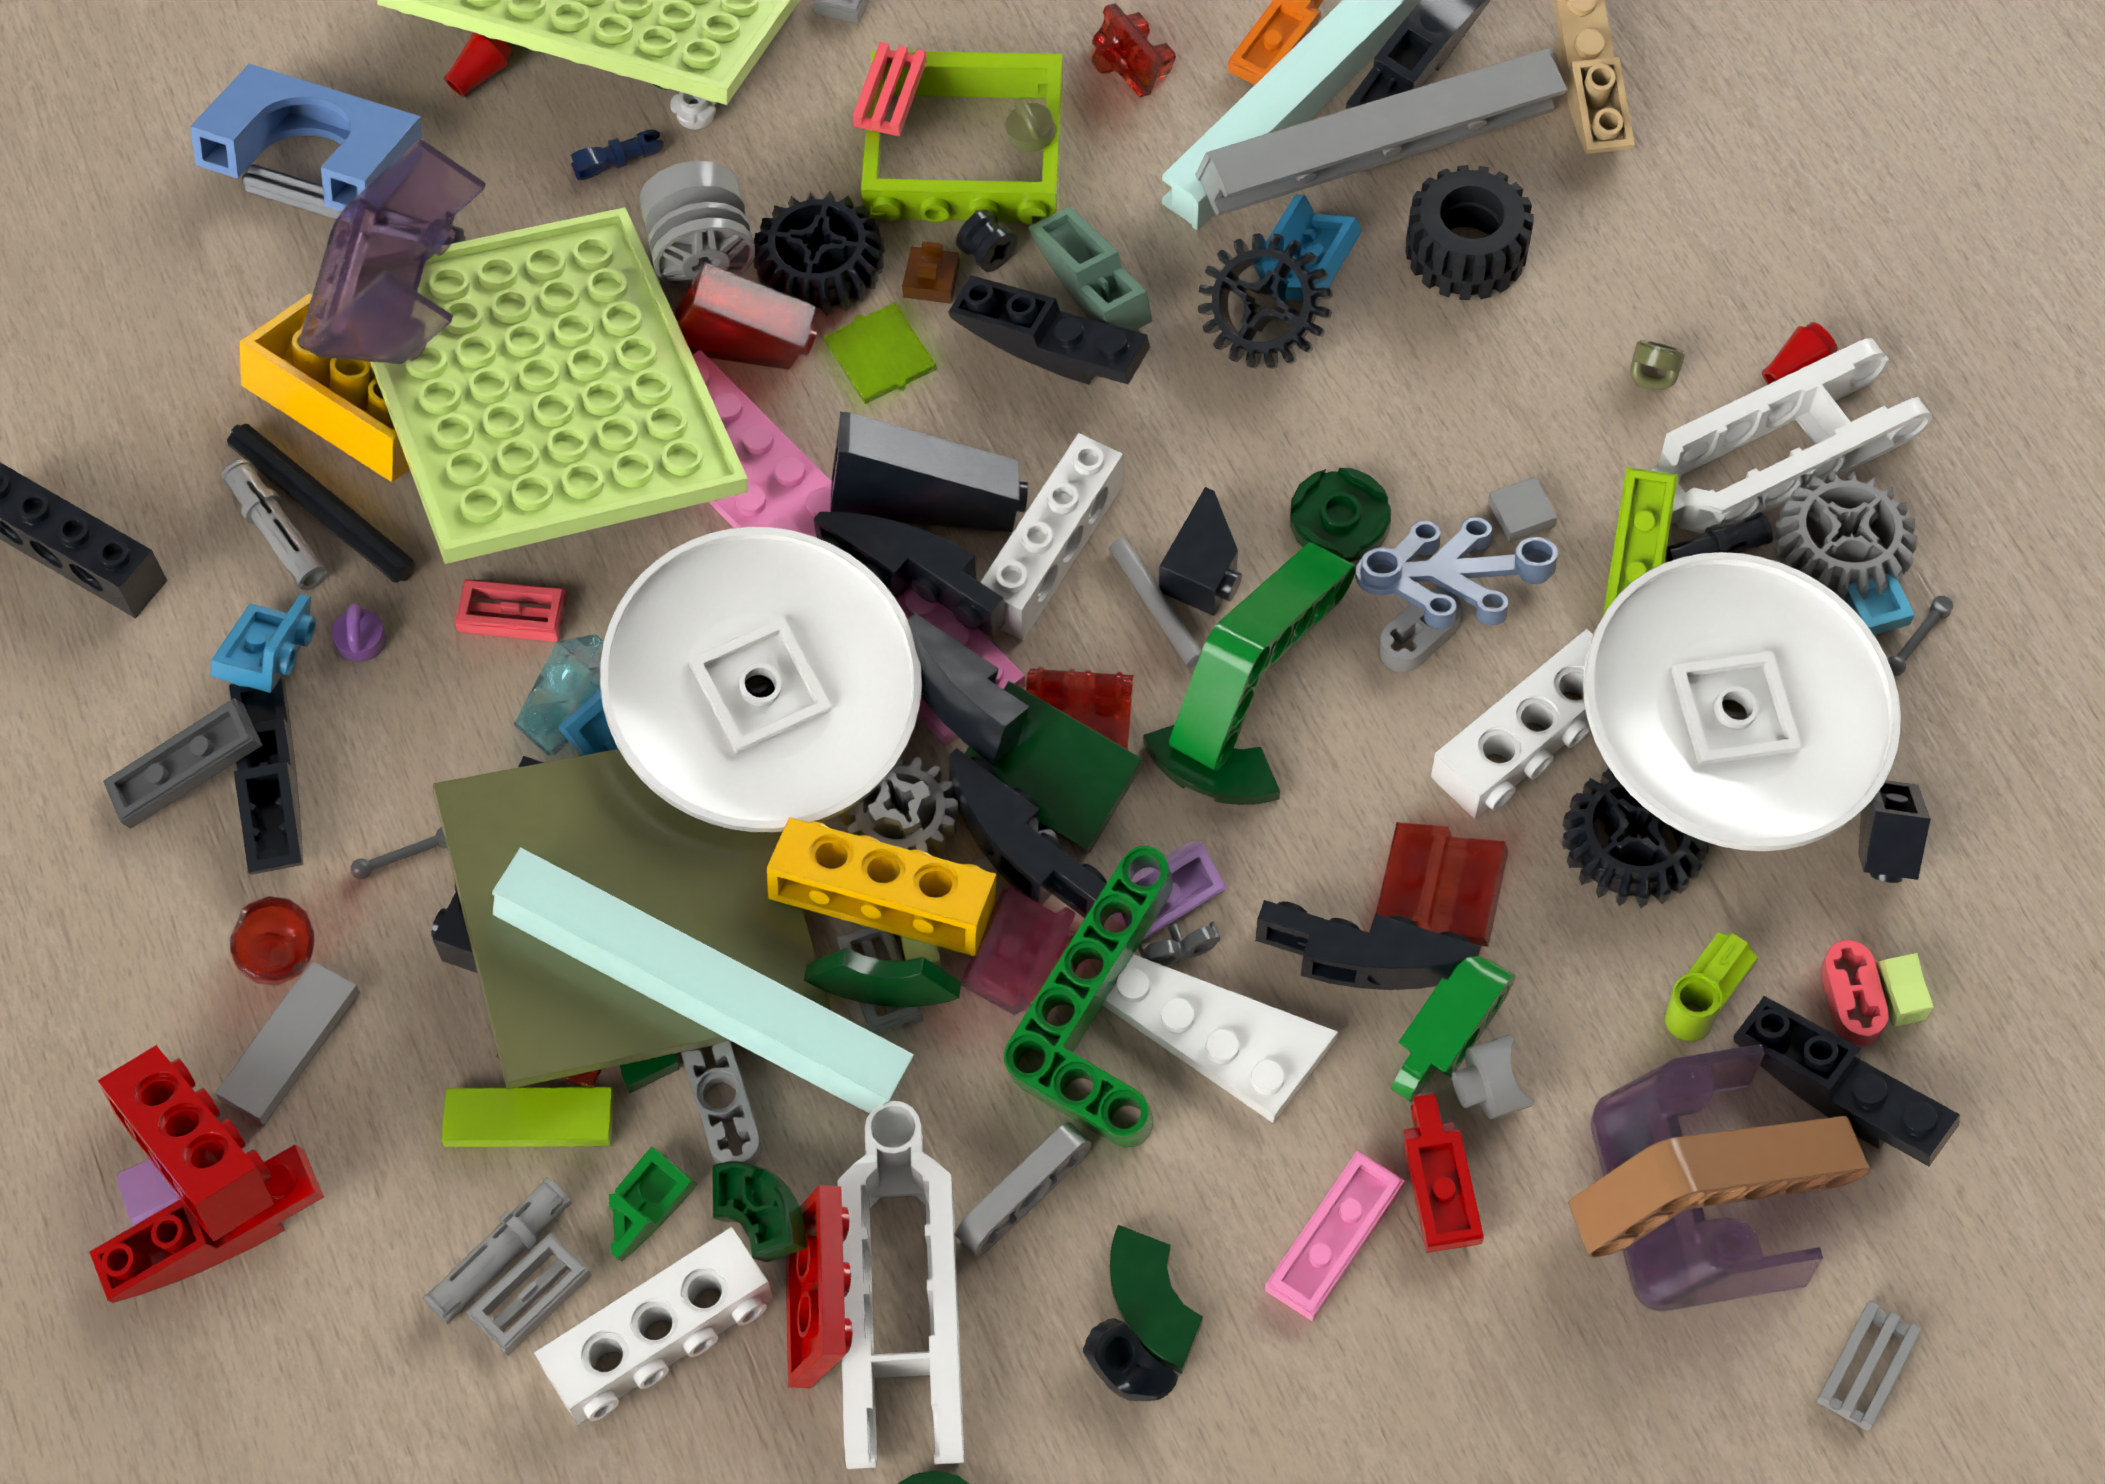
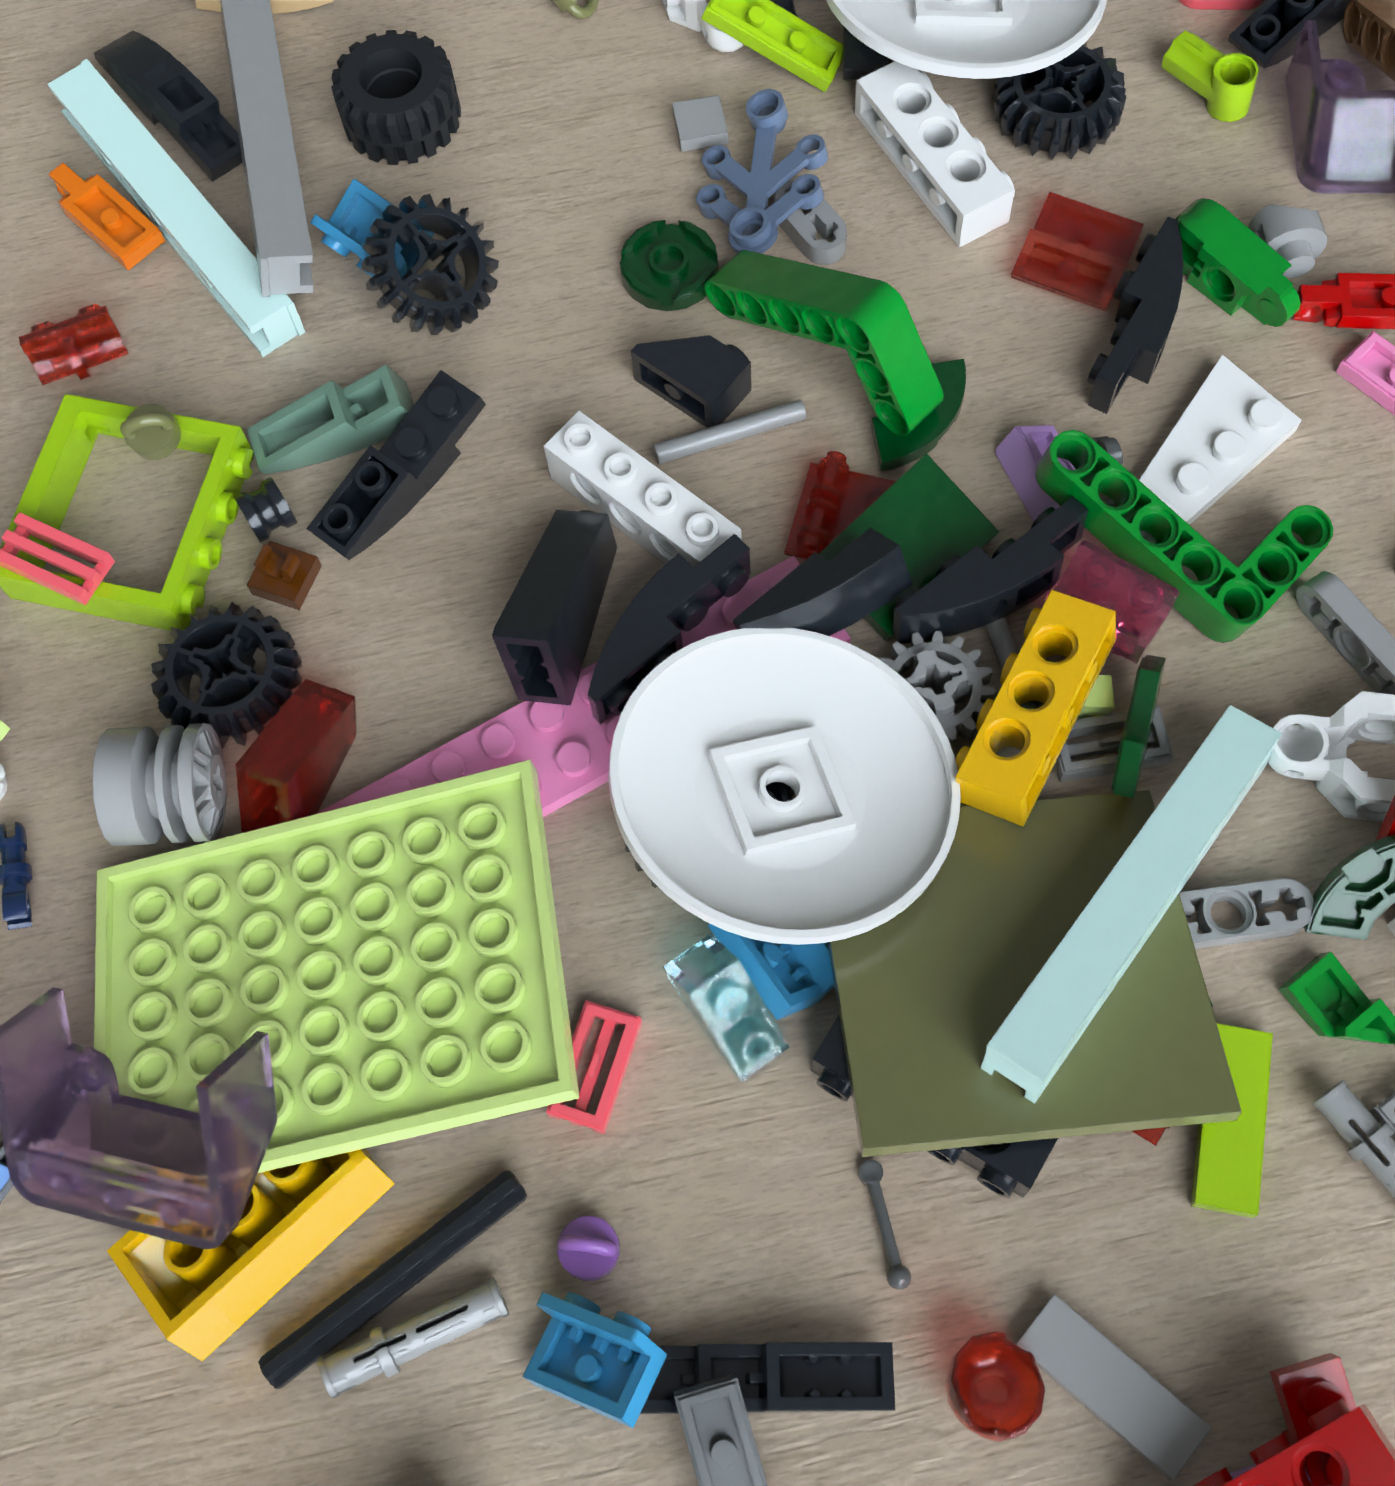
camera: 75 degrees left, 5 degrees up
(880, 353) = (364, 640): clear neon green piece -> none

